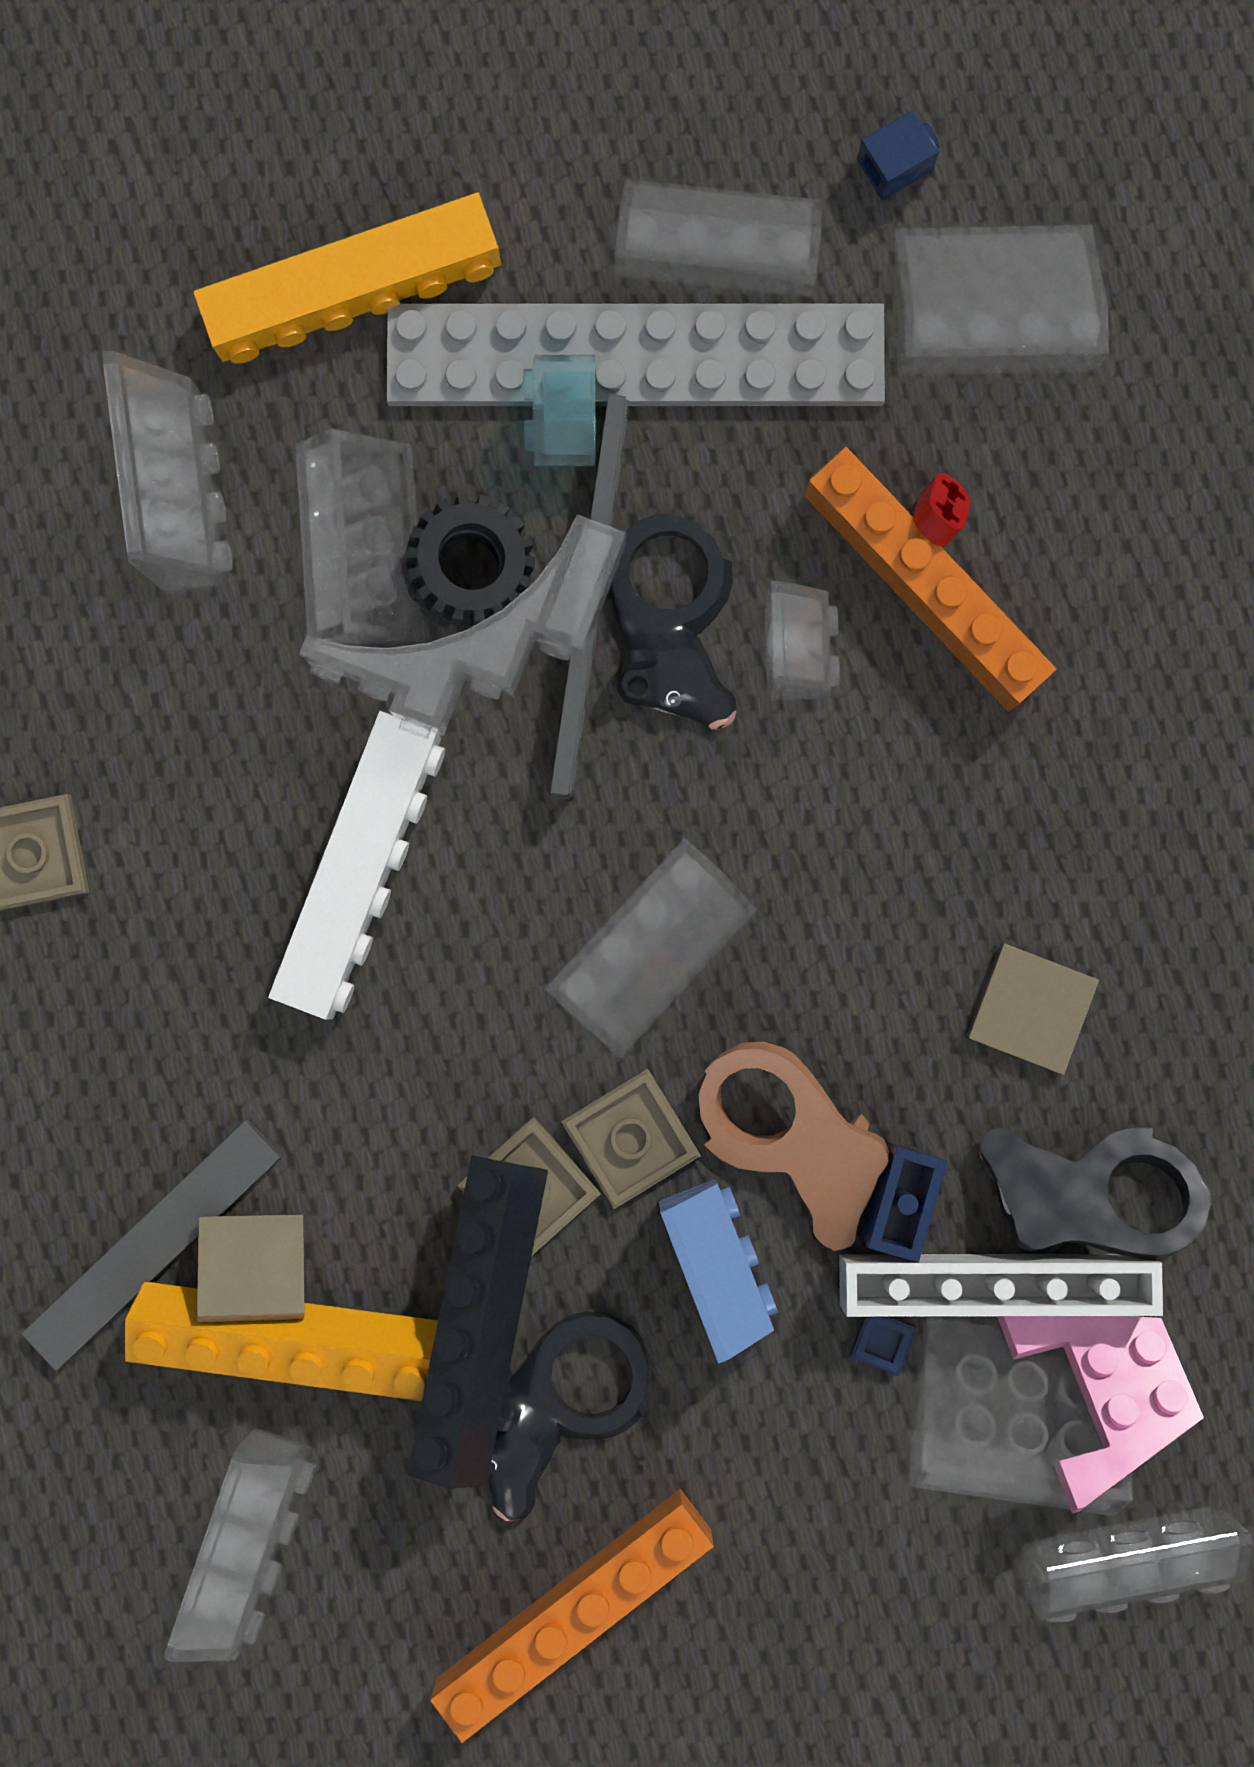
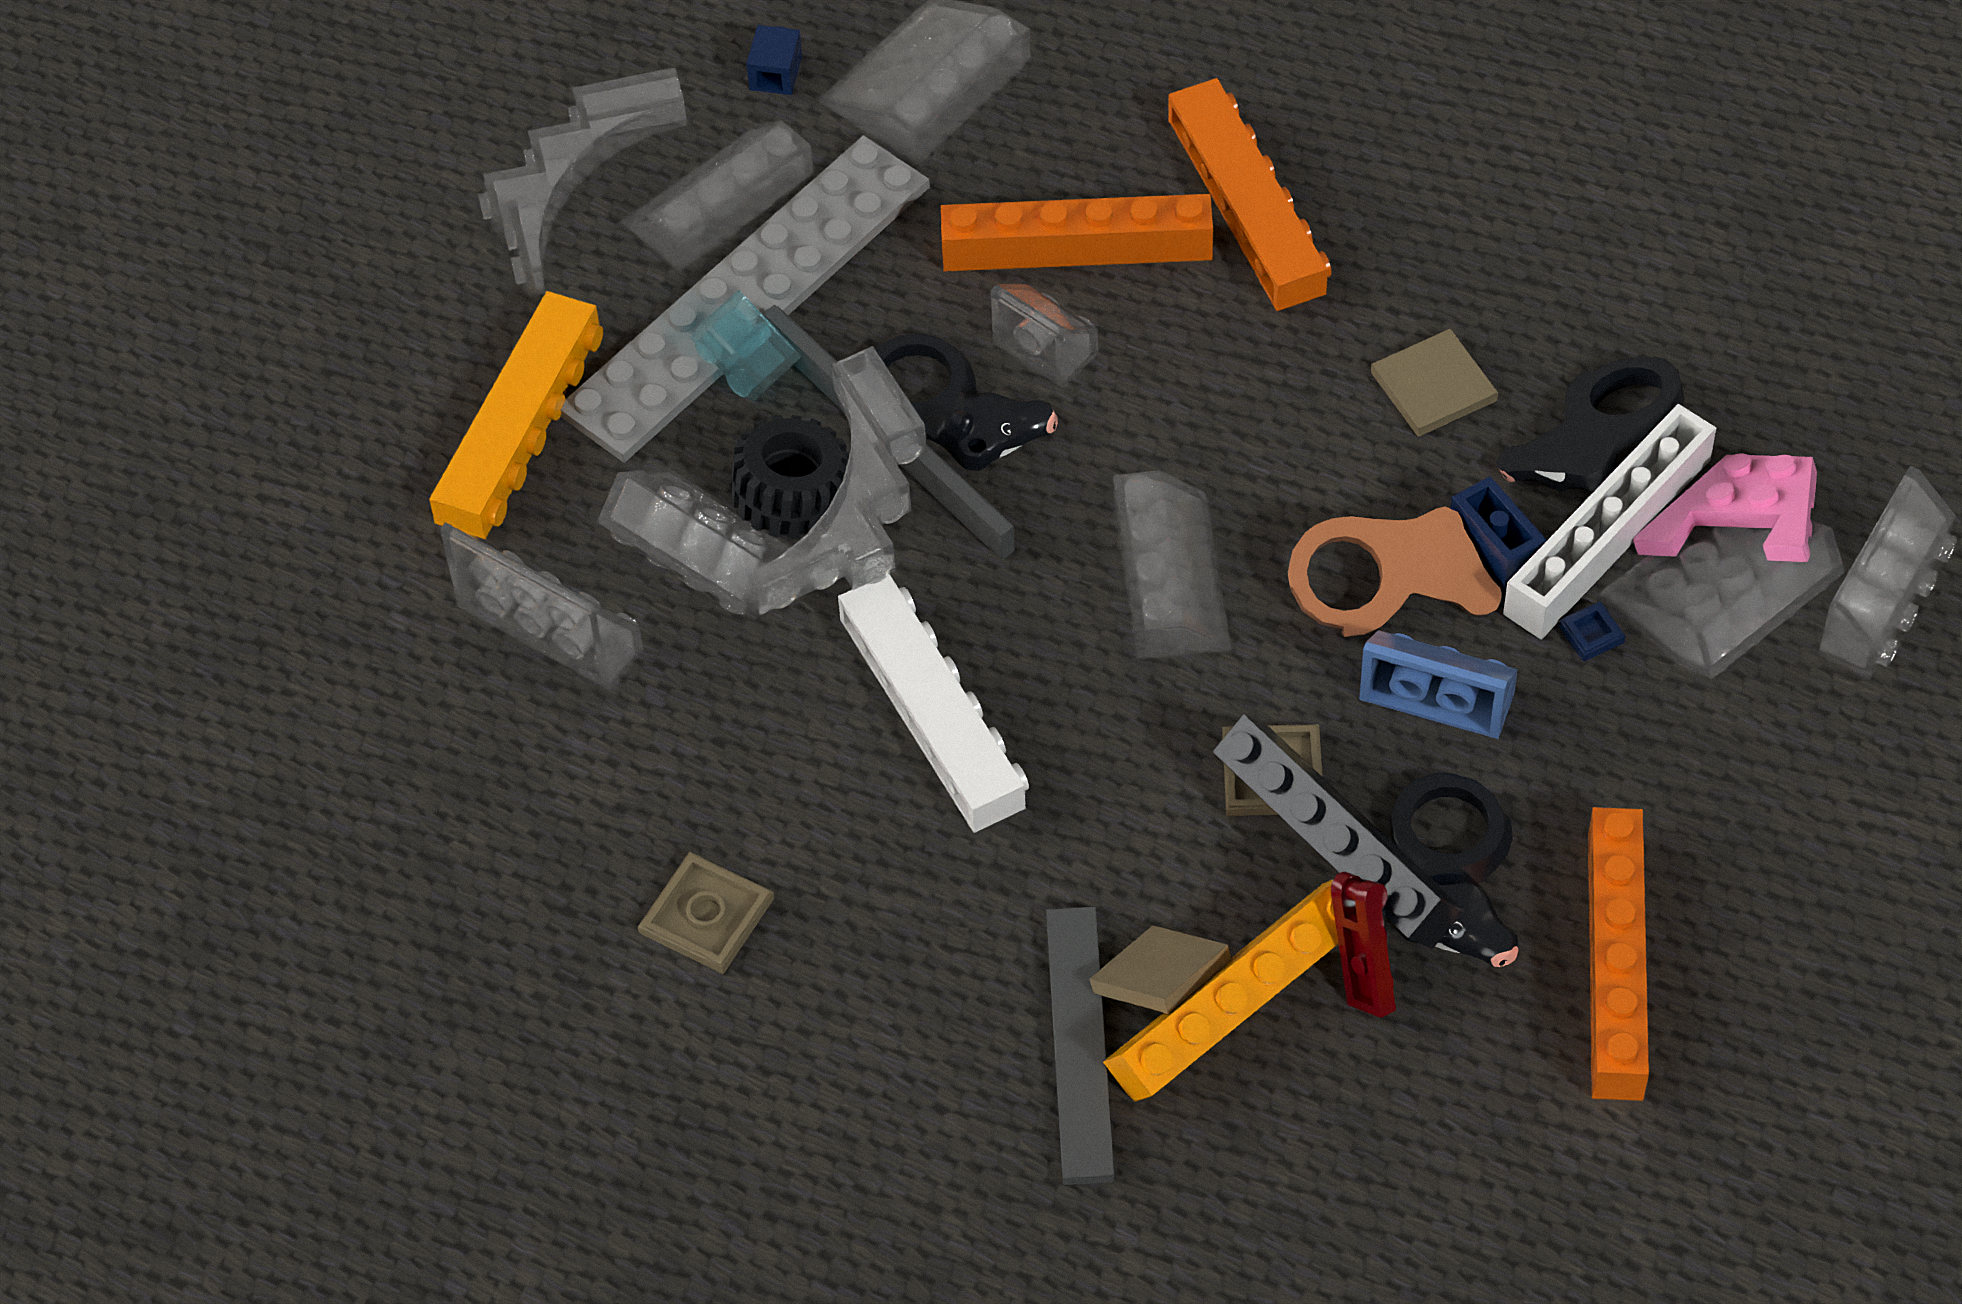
camera: 50 degrees left, 30 degrees down
(241, 1549) = (1365, 1130): clear slope -> none
(391, 1425) = (1363, 943): none -> dark red plate
(630, 1138) = (1296, 681): dark tan tile -> none
(707, 72) = (561, 156): none -> clear arch
(942, 509) = (1037, 188): red beam -> none
(1099, 688) = (1248, 194): none -> orange brick

